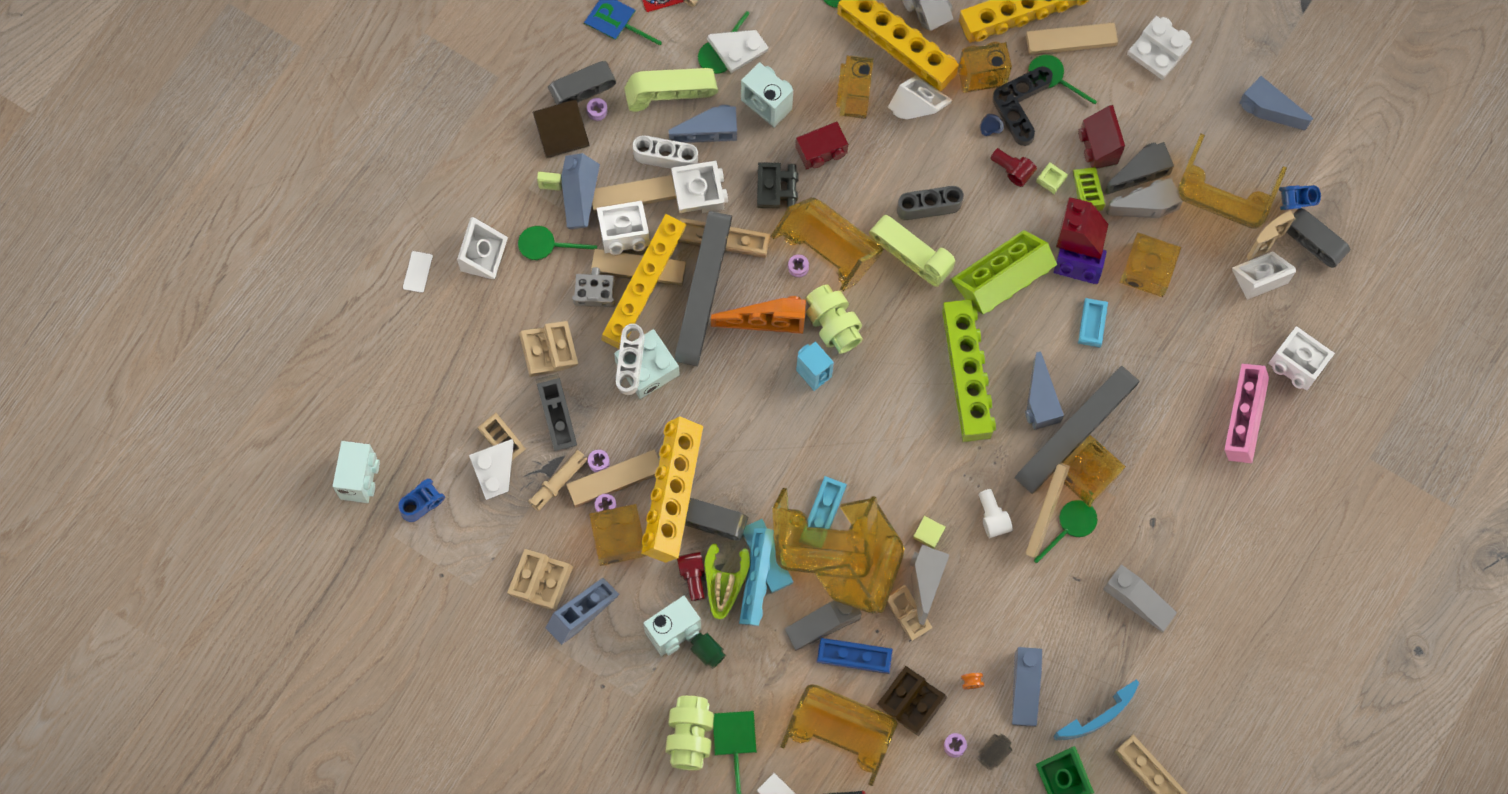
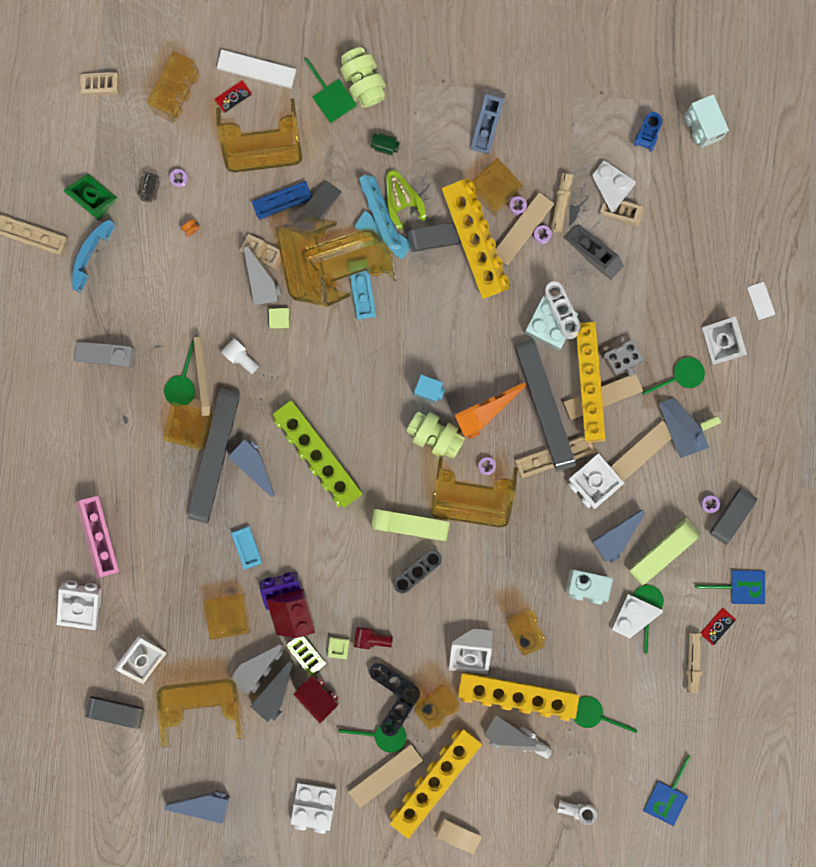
camera: 155 degrees right, 15 degrees up
(540, 579) = (531, 127): tan slope -> none
(548, 348) = (629, 296): tan slope -> none
(561, 128) = (727, 471): dark brown slope -> none
(623, 227) = (632, 418): white plate -> none
(657, 146) = (645, 491): white beam -> none
(673, 626) = (417, 142): light aqua brick -> none
(691, 570) = (430, 194): dark red pin -> none
(769, 185) = (545, 517): pearl dark grey plate -> none
(822, 145) = (524, 570): dark red brick -> none
(912, 701) = (225, 191): dark brown slope -> none
(991, 124) = (407, 665): dark blue piece -> none
(1005, 271) = (332, 548): lime slope -> none
(1026, 686) = (151, 246): sand blue slope -> none
(1268, 236) = (150, 685): tan slope -> none
(1299, 196) = (142, 735): blue piece -> none

